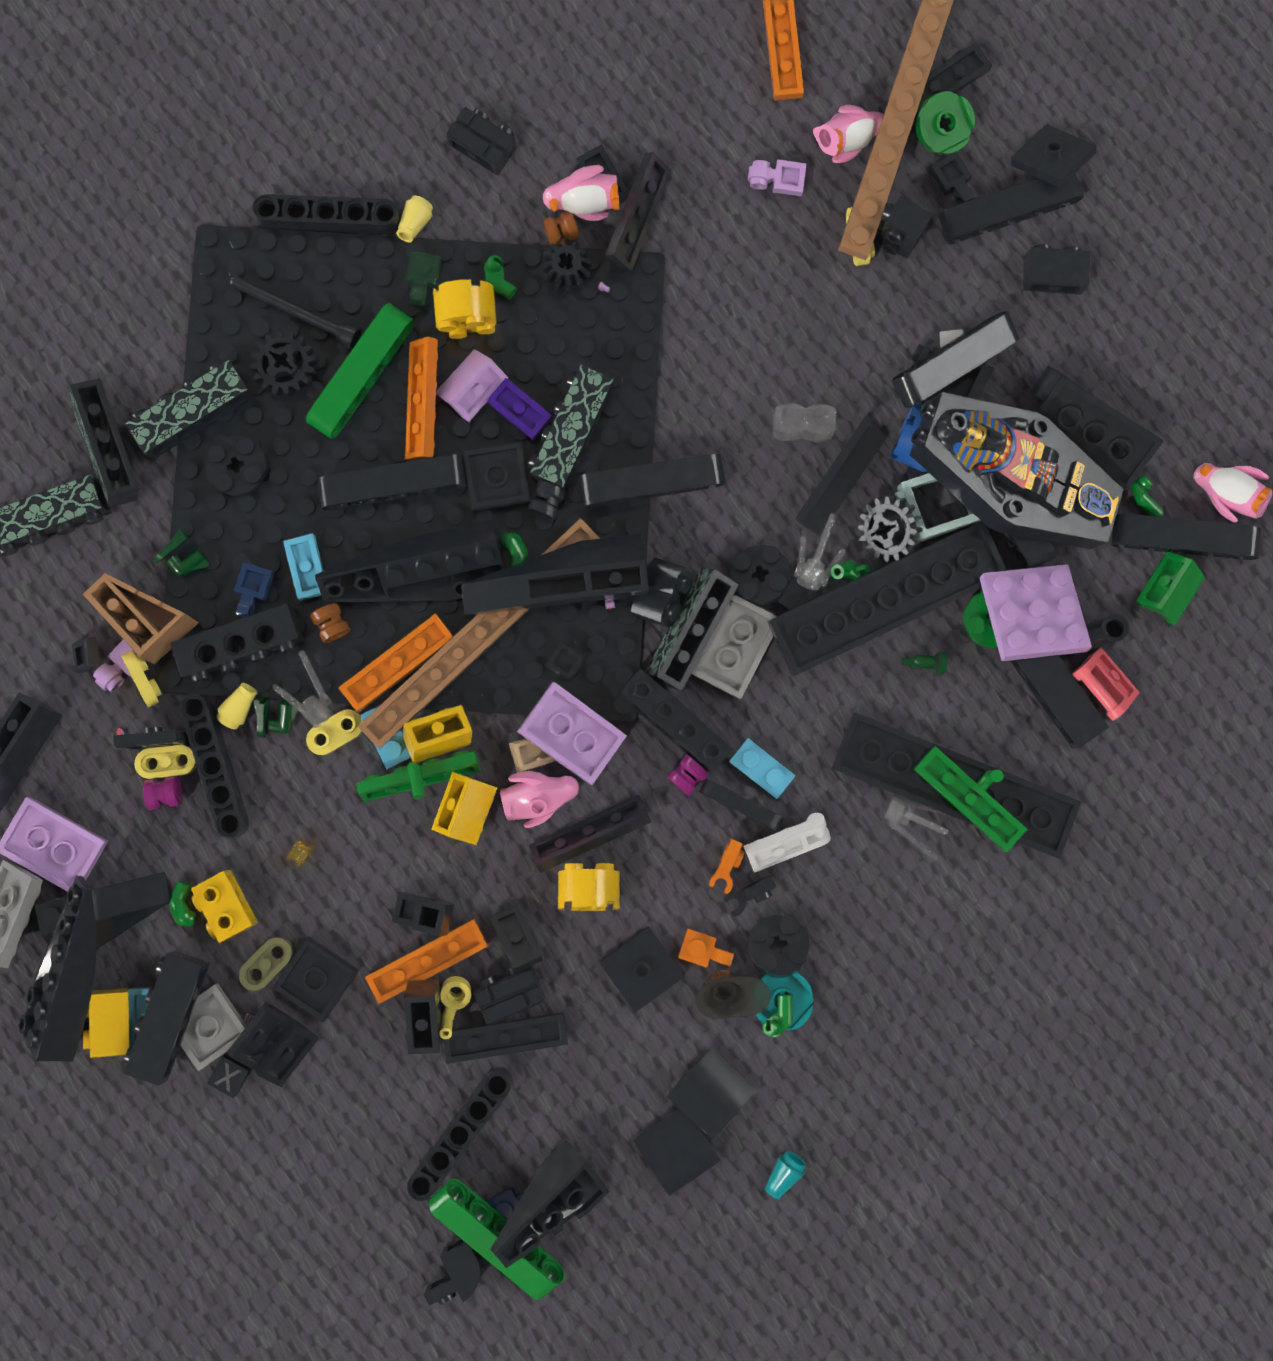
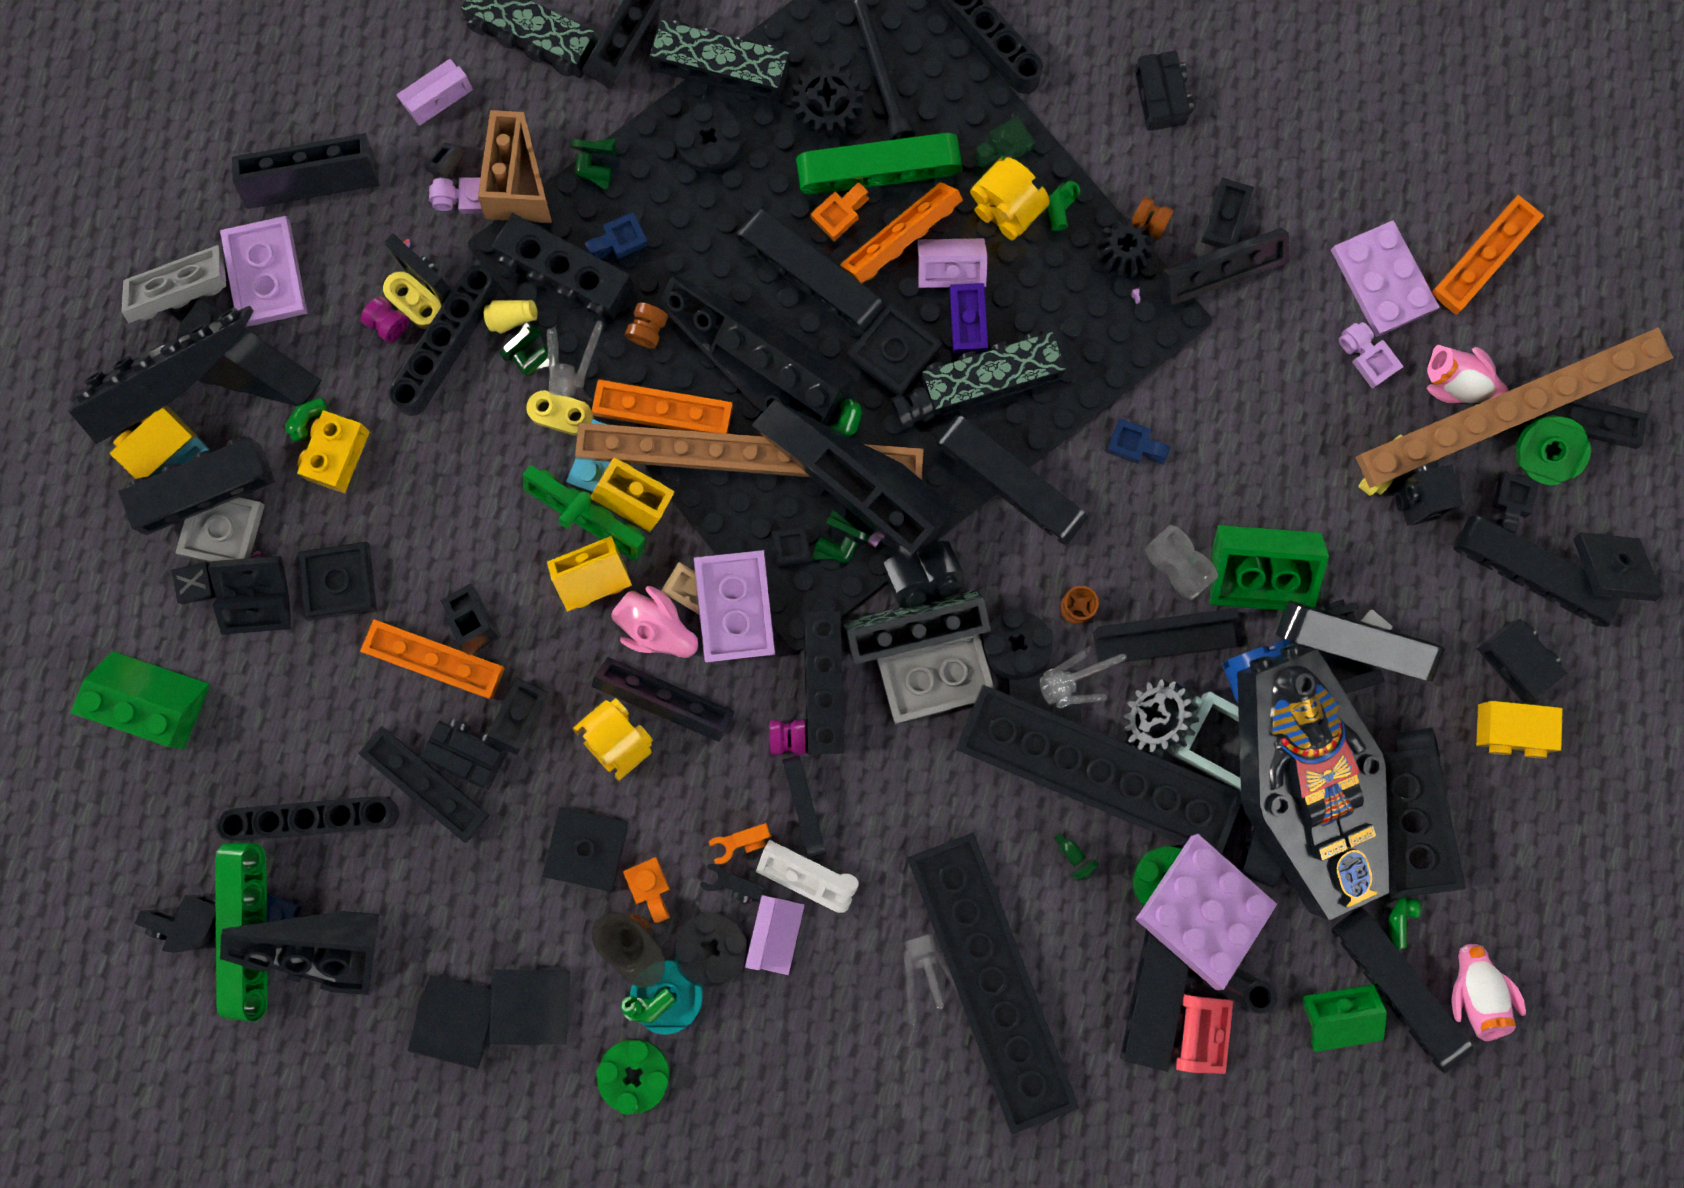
camera: 50 degrees right, 5 degrees down
(28, 619) = (435, 91): none -> lavender panel
(136, 666) = (460, 232): light yellow plate -> none
(266, 962) = (316, 528): olive plate -> none
(279, 1177) = (141, 700): none -> green slope
(300, 853) = (433, 474): clear yellow bush -> none
(304, 564) = (678, 259): medium azure plate -> none
(369, 429) = (838, 213): none -> orange plate
(414, 217) = (1046, 95): light yellow cone -> none
(423, 1016) = (380, 696): black brick -> none
(453, 1002) = (415, 712): light yellow plate -> none
(584, 193) = (1198, 208): animal -> none
(600, 632) = (830, 550): none -> dark green piece
(696, 380) = (1132, 441): none -> dark blue plate
(737, 119) = (1384, 278): none -> lavender plate
(762, 768) = (852, 797): medium azure plate -> none
(772, 507) = (1084, 602): none -> dark orange wheel
(785, 1174) = (514, 1138): teal cone -> none
(799, 1075) = (628, 1097): none -> green plate
(805, 896) = (774, 935): none -> lavender panel
(849, 570) = (1091, 716): green arm -> none
(855, 371) = (1267, 567): none -> green slope
(971, 797) = (992, 1004): green plate -> none
(1095, 312) = (1519, 727): none -> yellow brick

